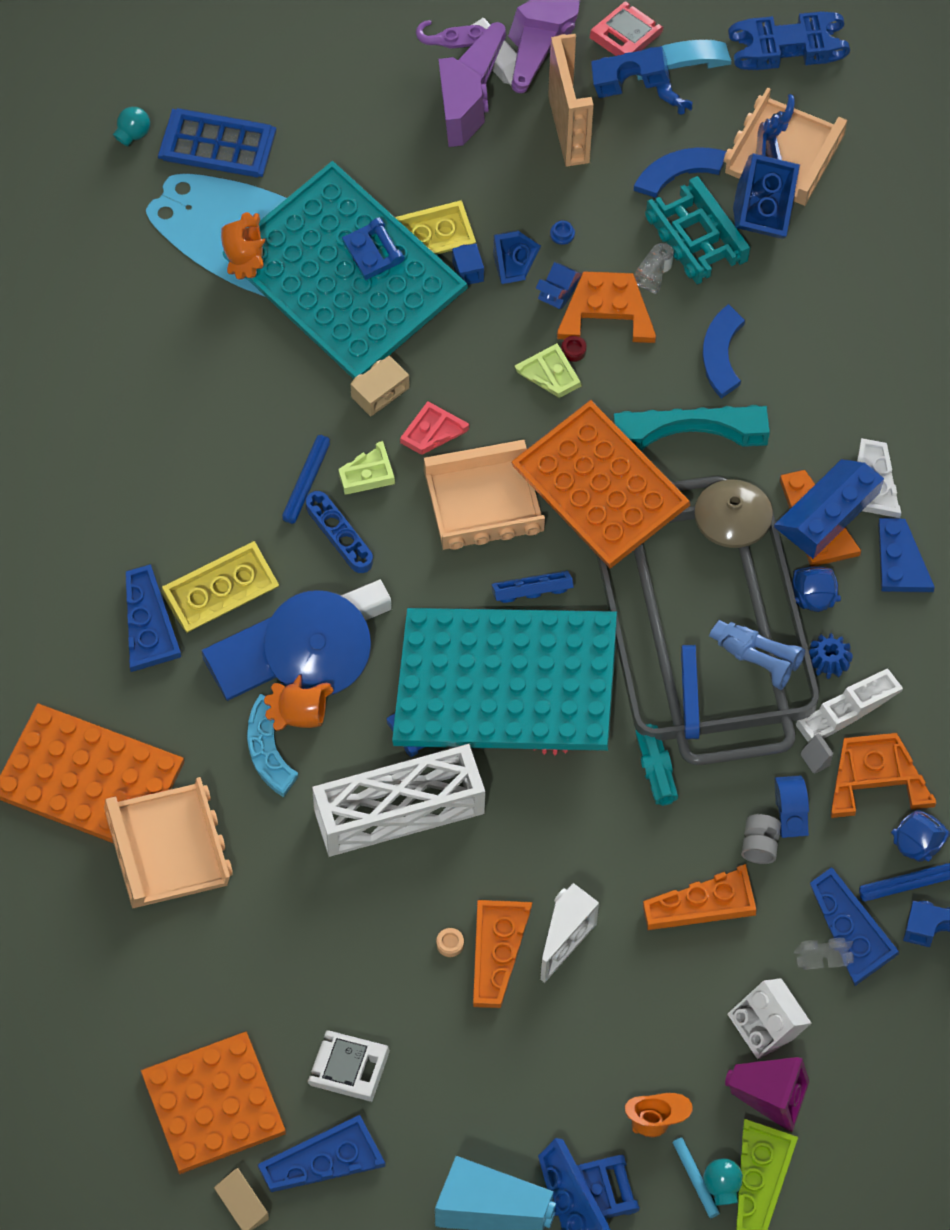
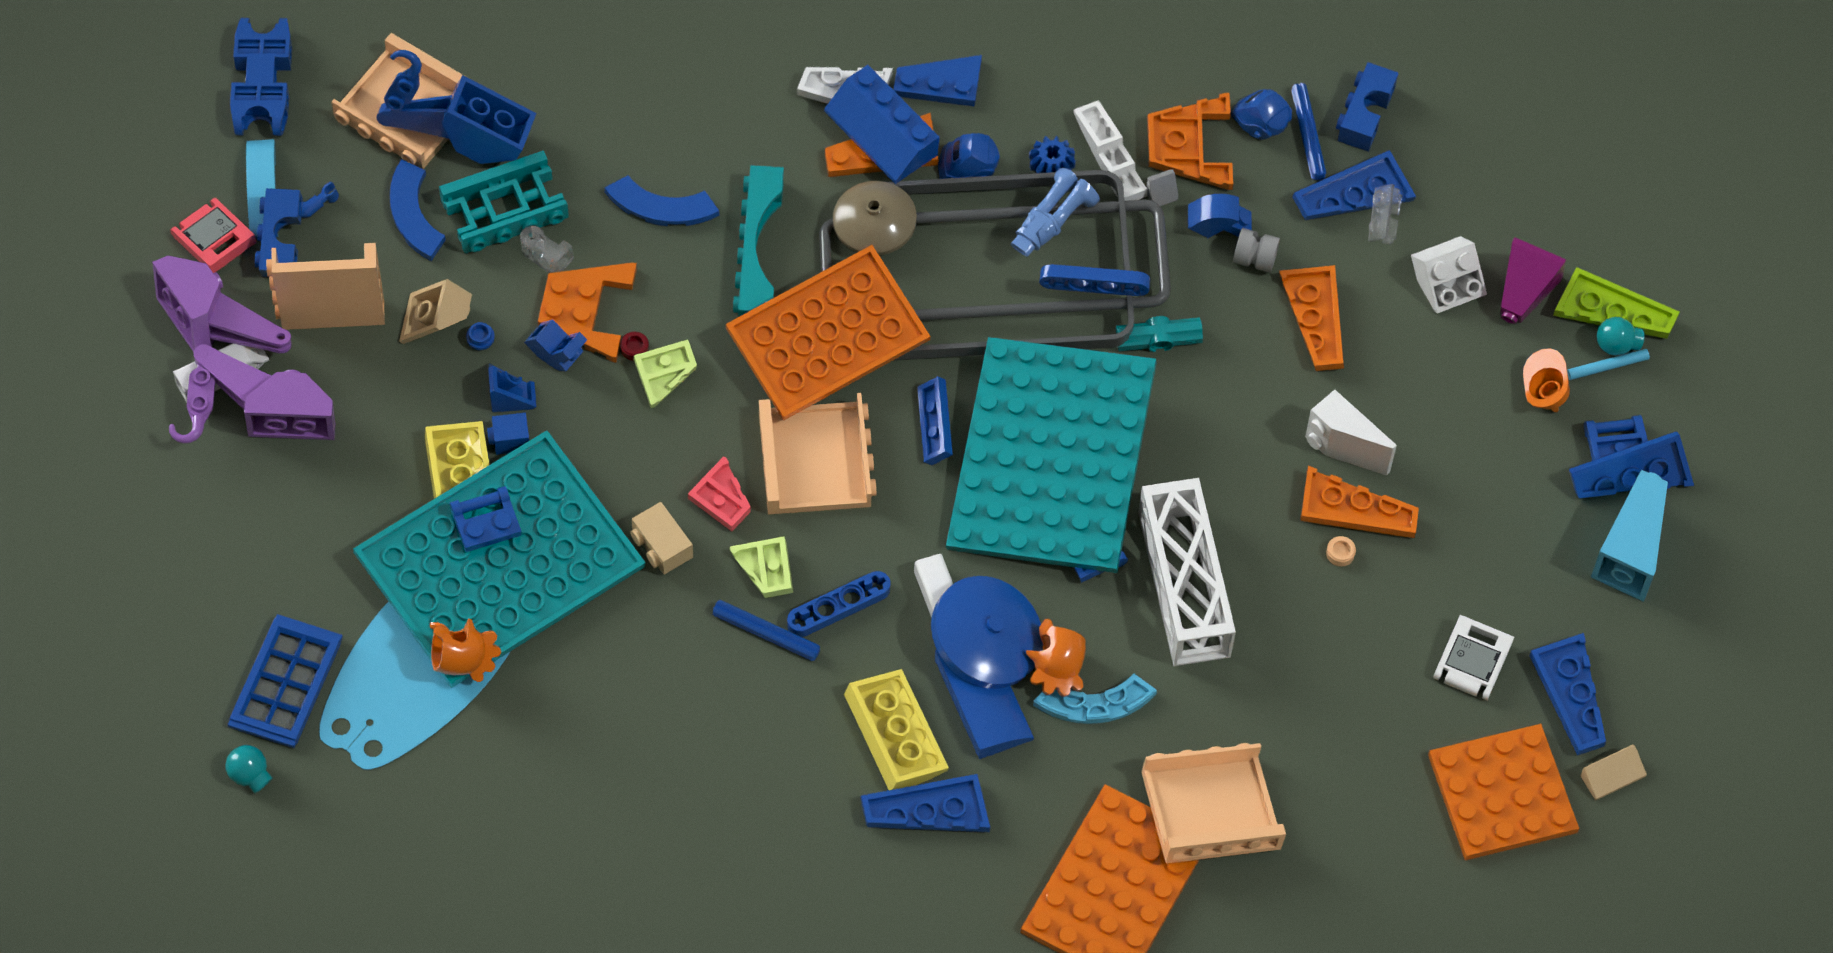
camera: 85 degrees left, 0 degrees up
(577, 196) = (434, 309): none -> tan slope

